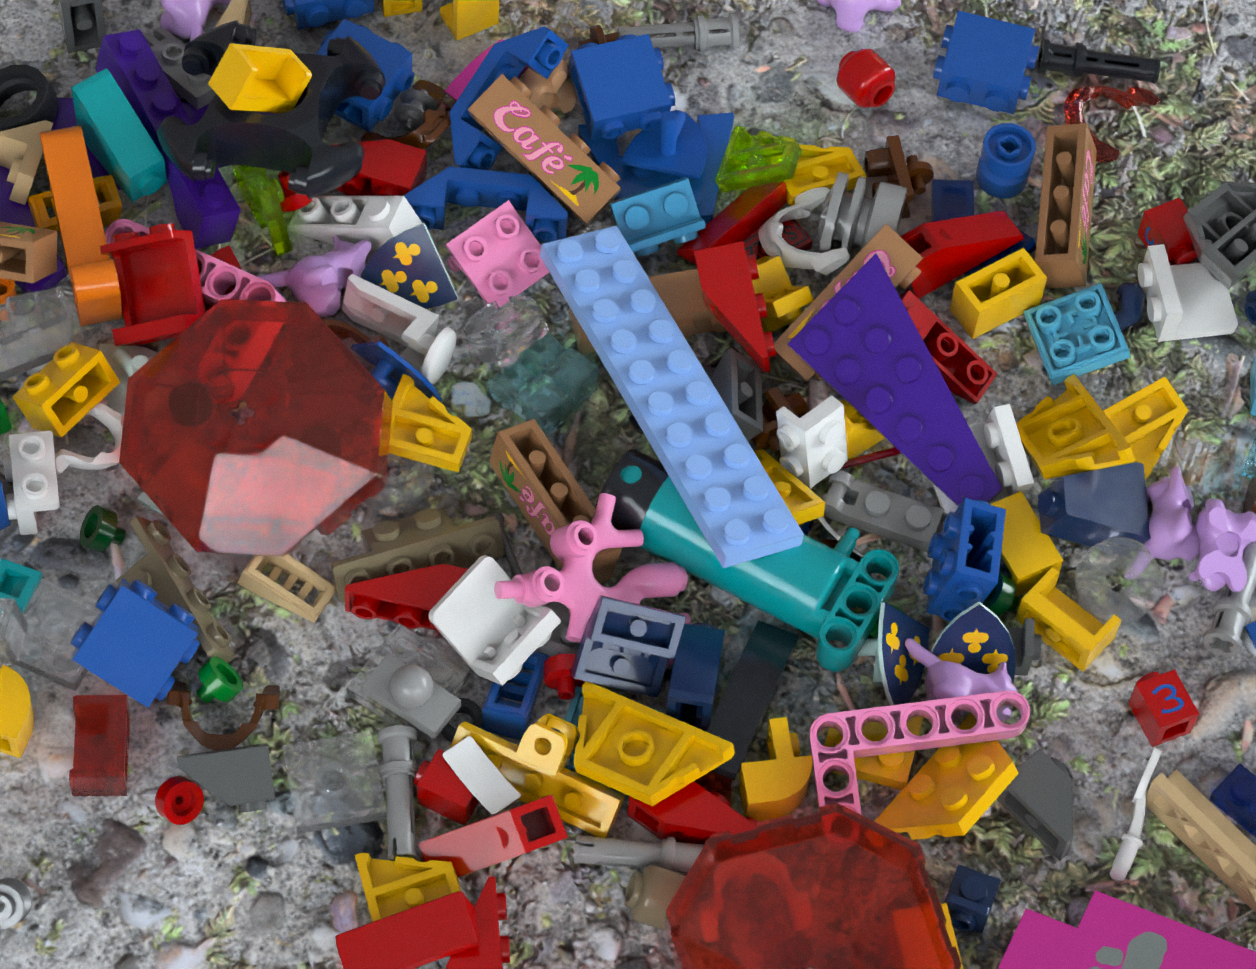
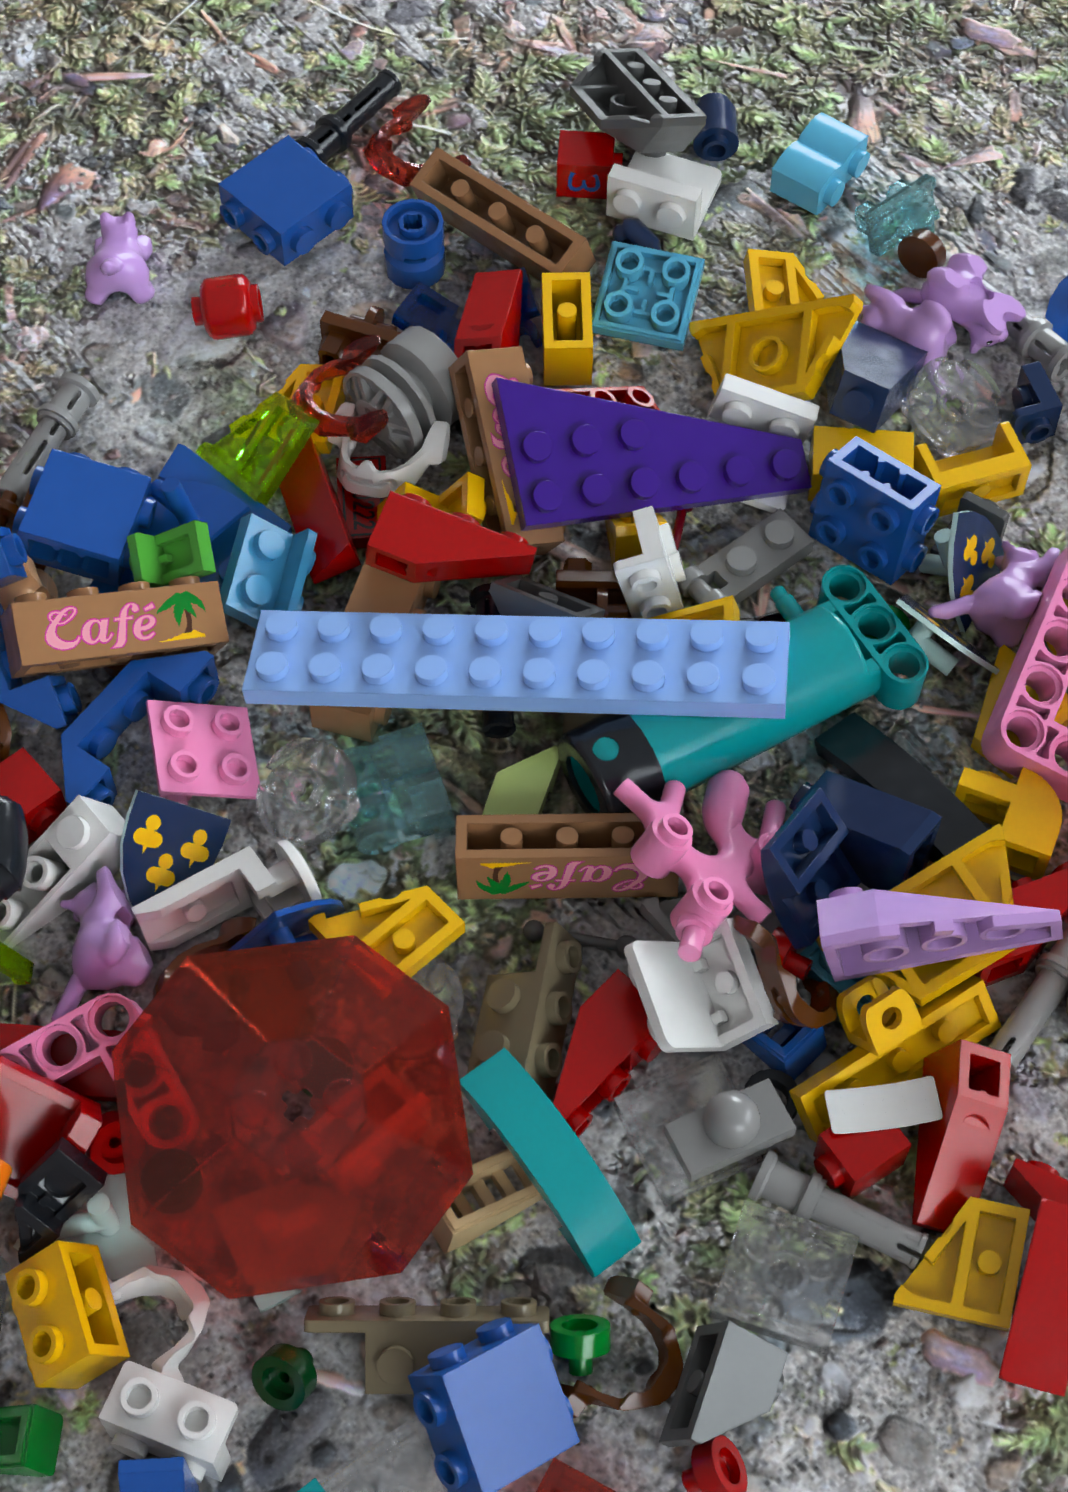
camera: 55 degrees left, 0 degrees up
(129, 333) = (52, 1194): none -> black slope
(322, 600) = (552, 1160): none -> teal slope
(545, 632) = (781, 984): none -> reddish brown helmet
(589, 457) = (524, 785): none -> yellowish green slope
(598, 706) = (899, 930): none -> lavender wedge
(621, 149) = (171, 554): none -> bright green bracket
(812, 209) = (359, 428): none -> clear red helmet
(1162, 641) = (1035, 405): none -> dark blue bracket

